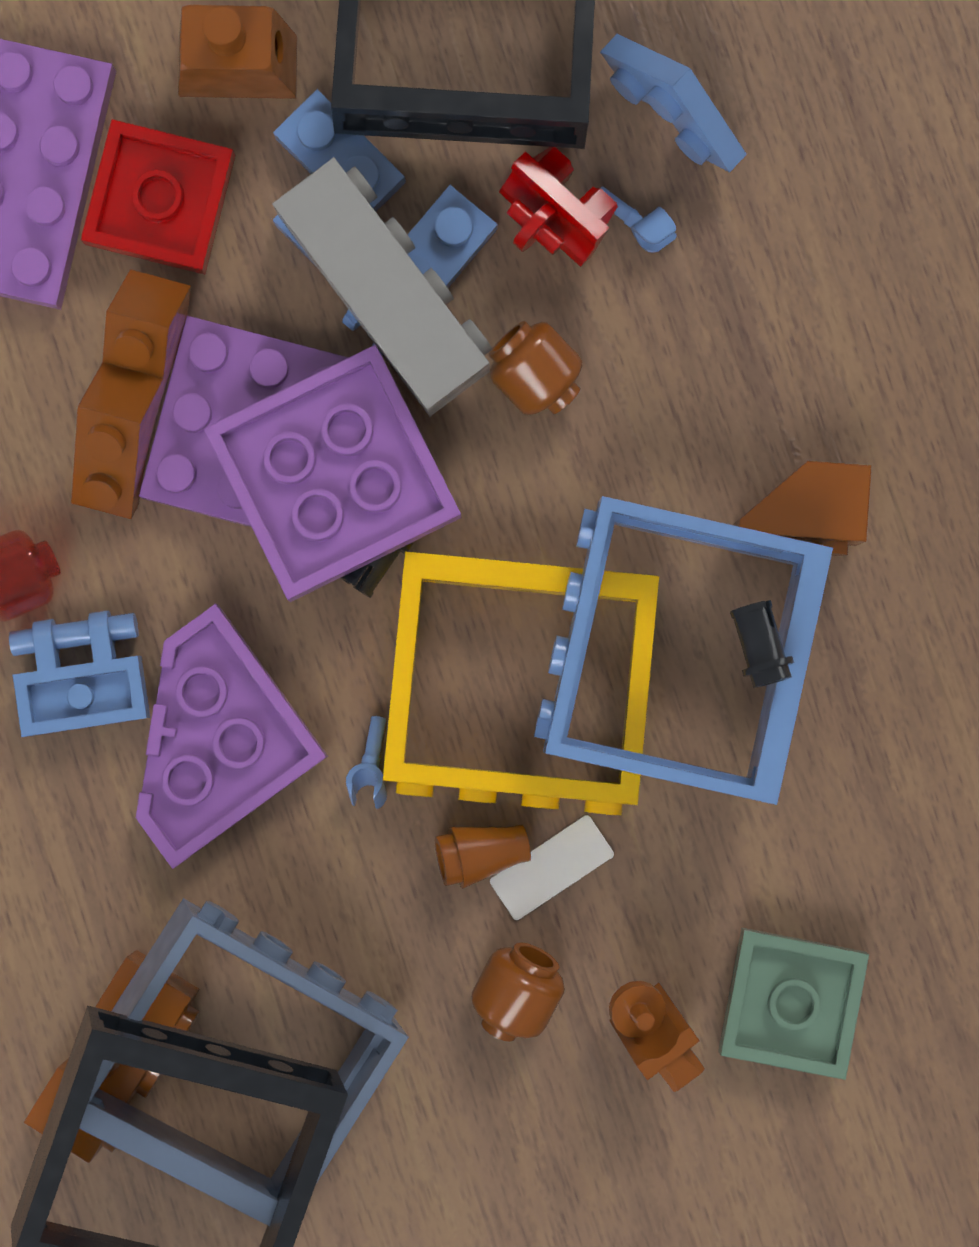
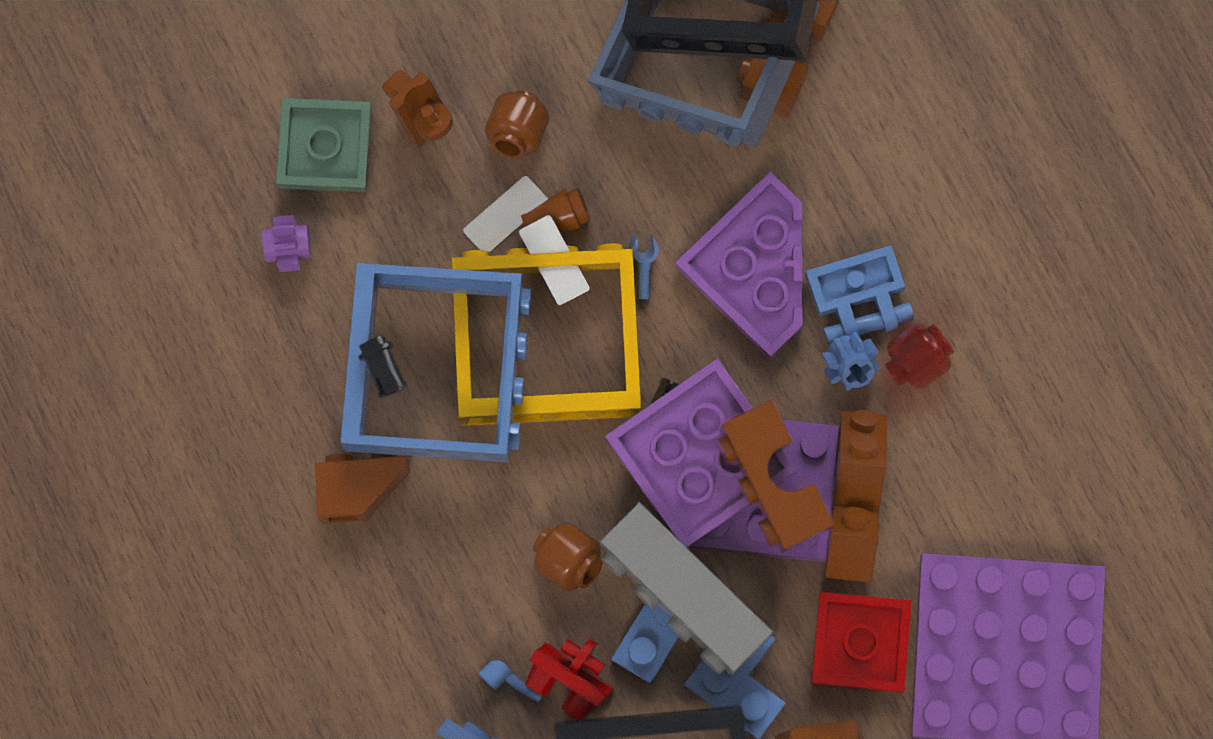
camera: 170 degrees right, 10 degrees down
(105, 580) = (851, 361): none -> medium blue gear
(219, 358) = (787, 515): none -> dark orange arch
(503, 814) = (563, 281): none -> white sticker
(864, 865) = (286, 243): none -> medium lavender gear

